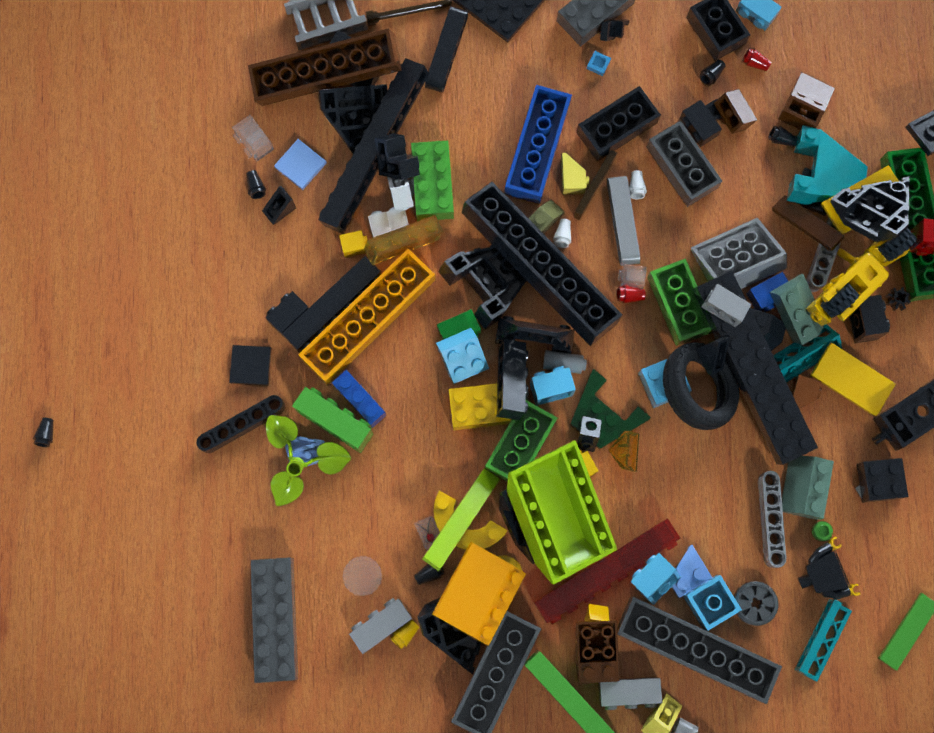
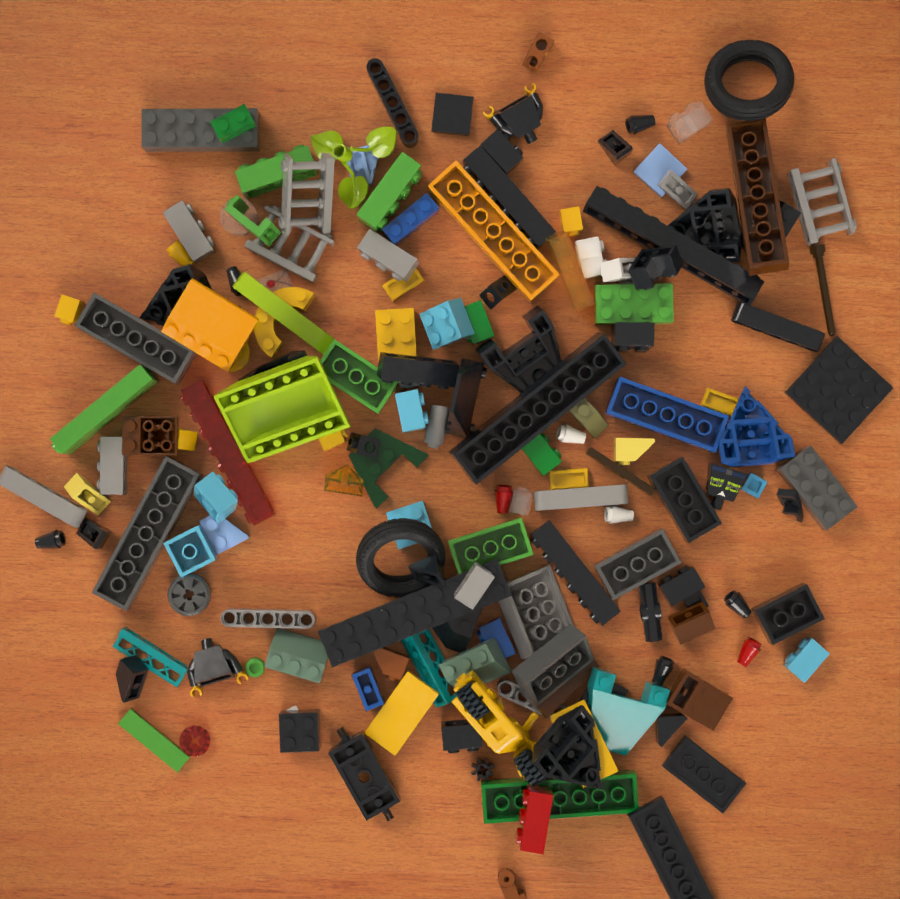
camera: 90 degrees right, 10 degrees up
(184, 75) = (749, 51): none -> black tyre
(186, 284) = (538, 52): none -> dark orange leg
(252, 298) = (520, 116): none -> black torso
(268, 581) = (233, 123): none -> green brick
(316, 536) = (267, 173): none -> bright green brick
(319, 145) = (677, 189): none -> light grey plate
(345, 485) = (323, 202): none -> light grey fence
(381, 544) = (266, 231): none -> bright green panel
(397, 419) = (387, 256): none -> light grey brick
(407, 517) = (291, 262): none -> light grey fence
(422, 404) = (397, 289): none -> yellow tile
(424, 308) = (499, 289): none -> black bracket
(465, 176) = (632, 336): none -> black brick
(521, 97) = (719, 401): none -> yellow tile
(552, 62) = (753, 436): none -> blue wedge
(587, 256) = (542, 454): none -> green brick
(600, 90) = (723, 484): none -> torso
(605, 234) = (569, 479): none -> yellow tile
(697, 221) = (575, 572): none -> black brick
(702, 709) = (93, 533): none -> black slope
(730, 150) = (650, 612): none -> black piece
(791, 233) = (553, 665): none -> dark grey brick
(832, 413) = (368, 688): none -> blue brick
(836, 128) = (667, 725): none -> black slope
(848, 658) = (131, 677): none -> black slope
(876, 95) = (703, 774): none -> black tile
(913, 588) = (185, 741): none -> clear red gear

